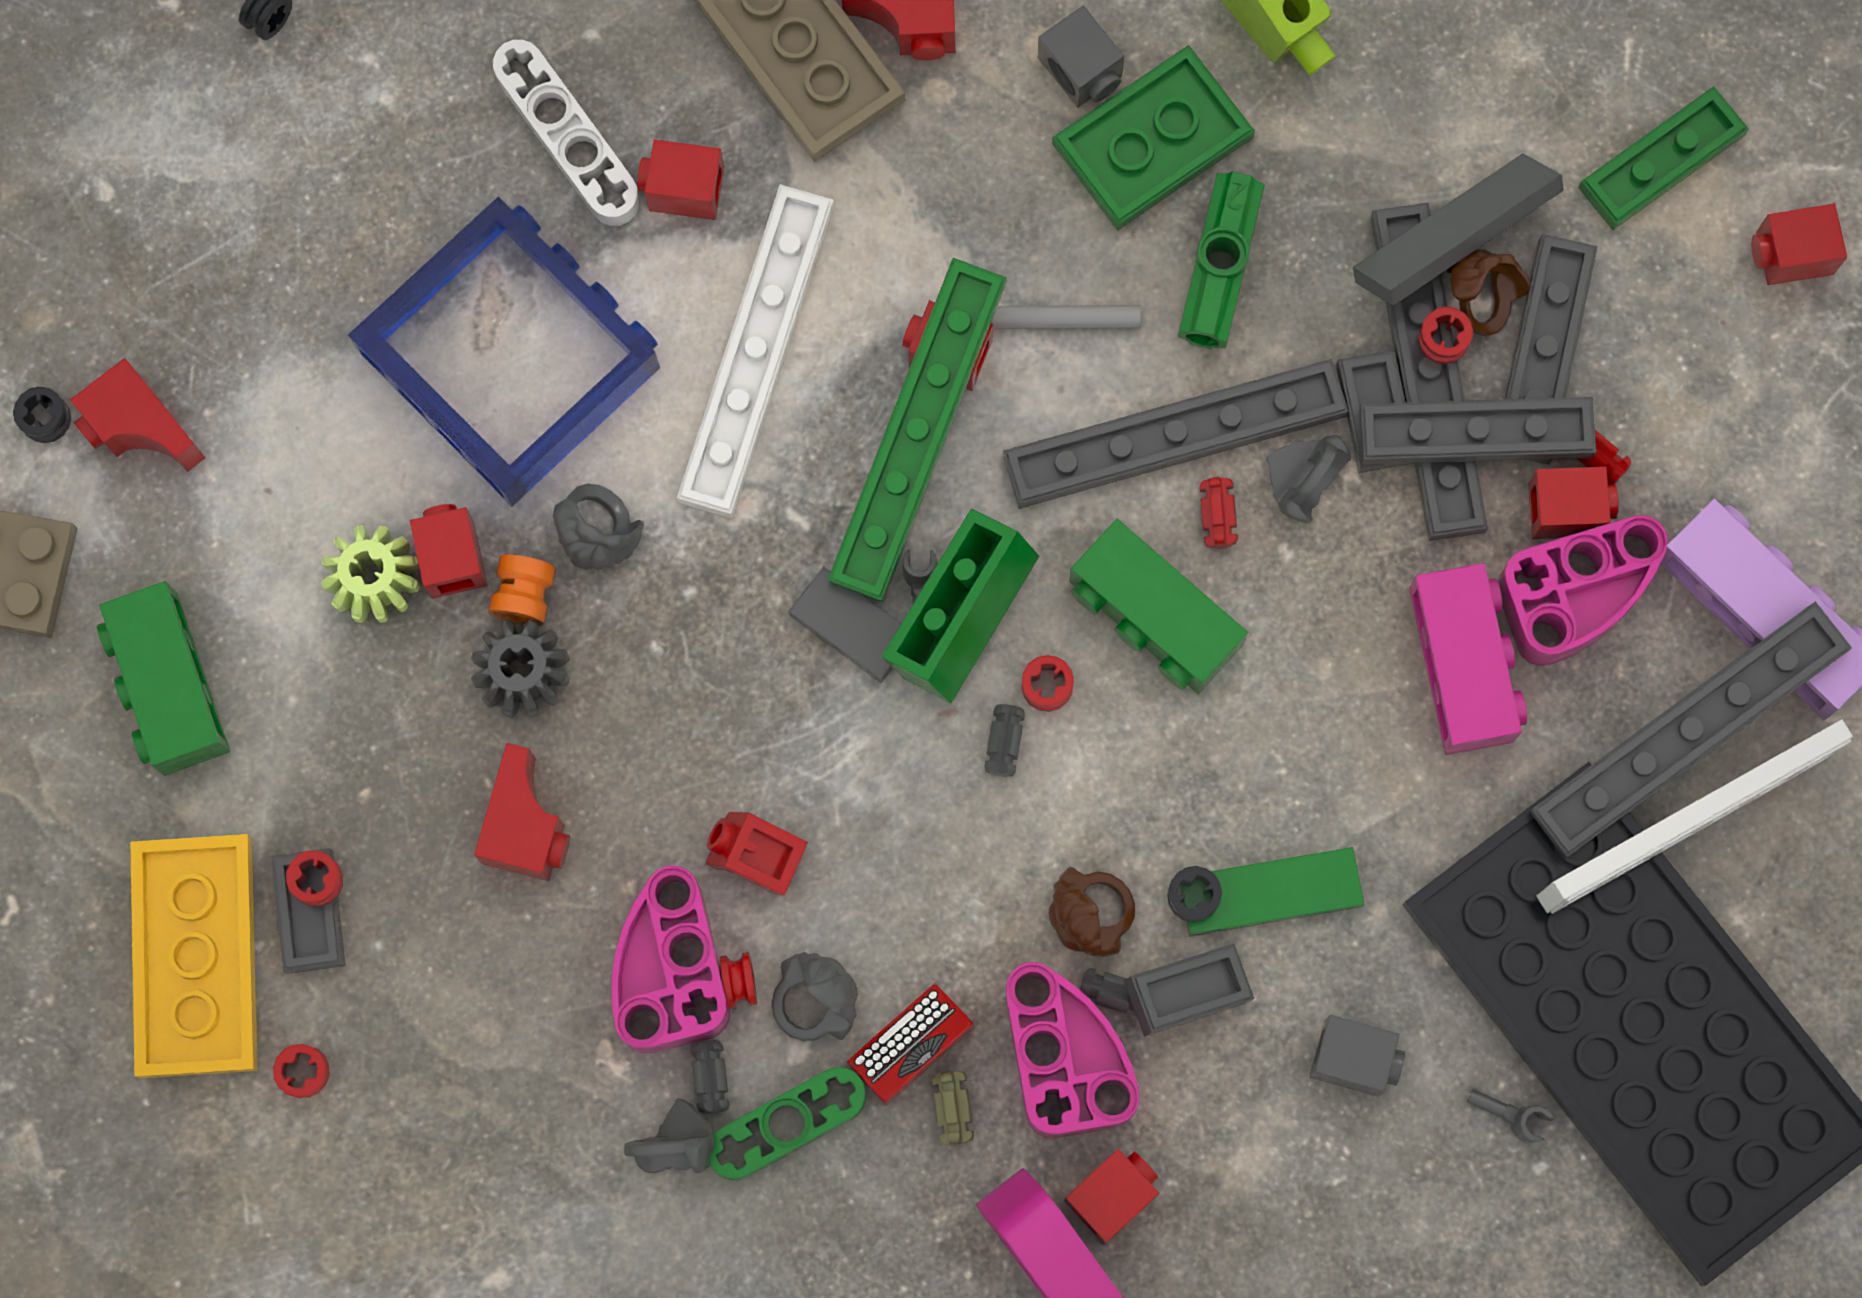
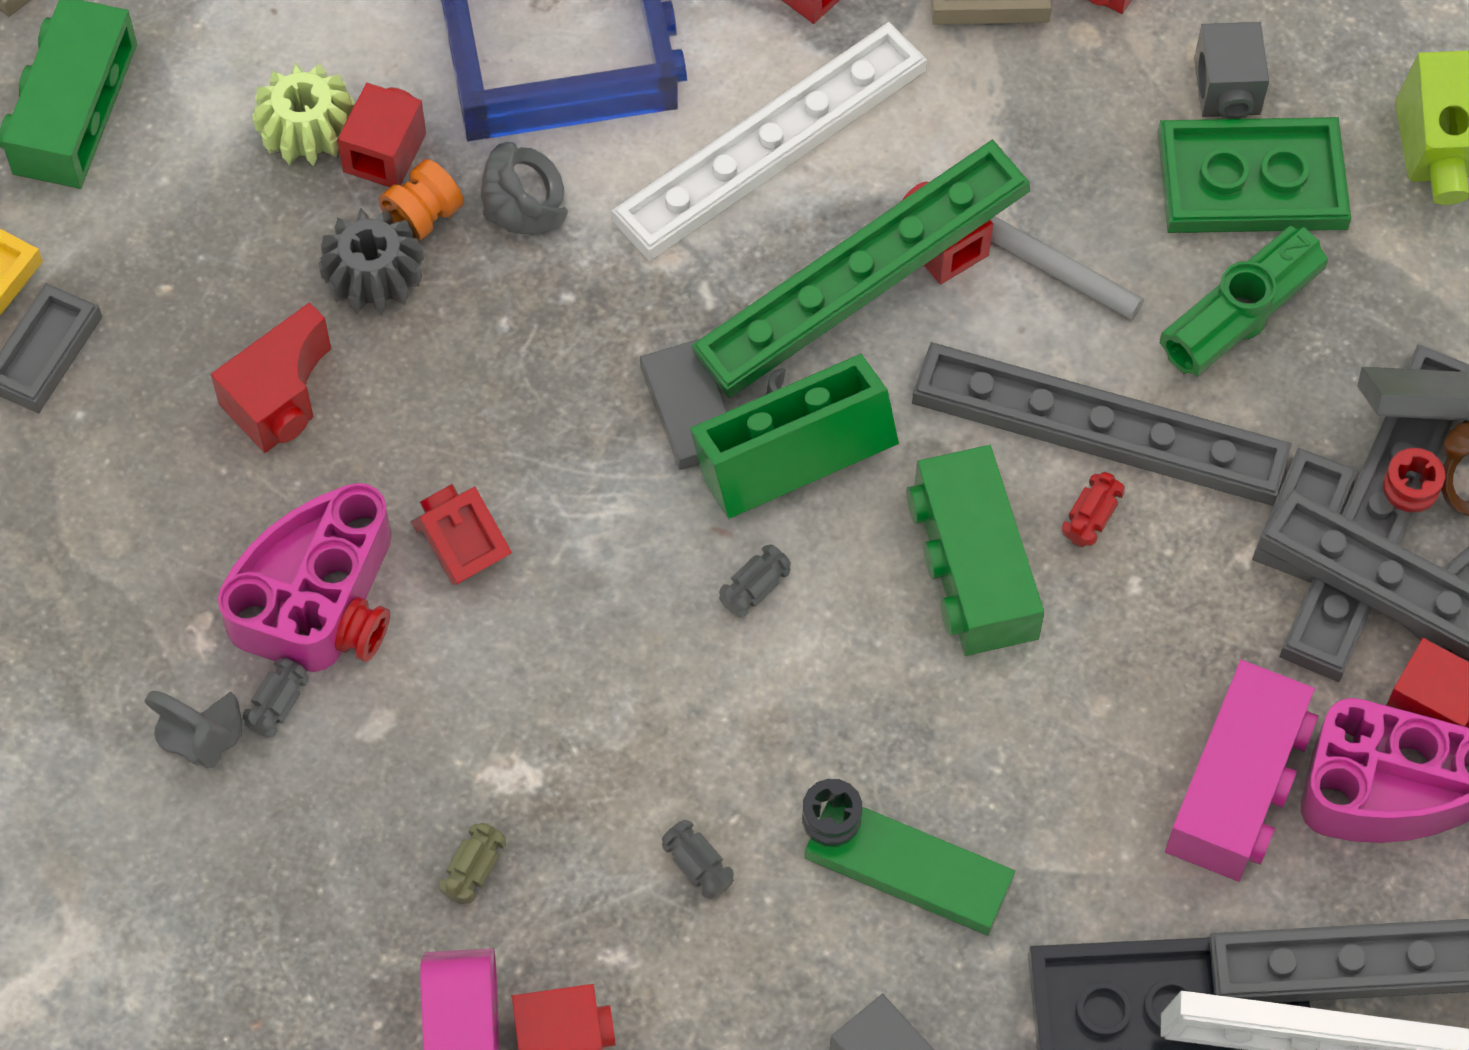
camera: 30 degrees right, 15 degrees down
(296, 876) = (51, 306): red bush -> none
(819, 1090) = (361, 765): green beam -> none
(828, 984) = (440, 684): dark grey piece -> none
(910, 1044) = (475, 787): slope -> none
(1033, 673) = (822, 541): red bush -> none
(1077, 916) = (704, 766): reddish brown piece -> none
(1086, 1061) = (617, 899): dark pink beam -> none
(1189, 989) = (767, 896): dark grey tile -> none
(1303, 471) = (1199, 522): dark grey piece -> none

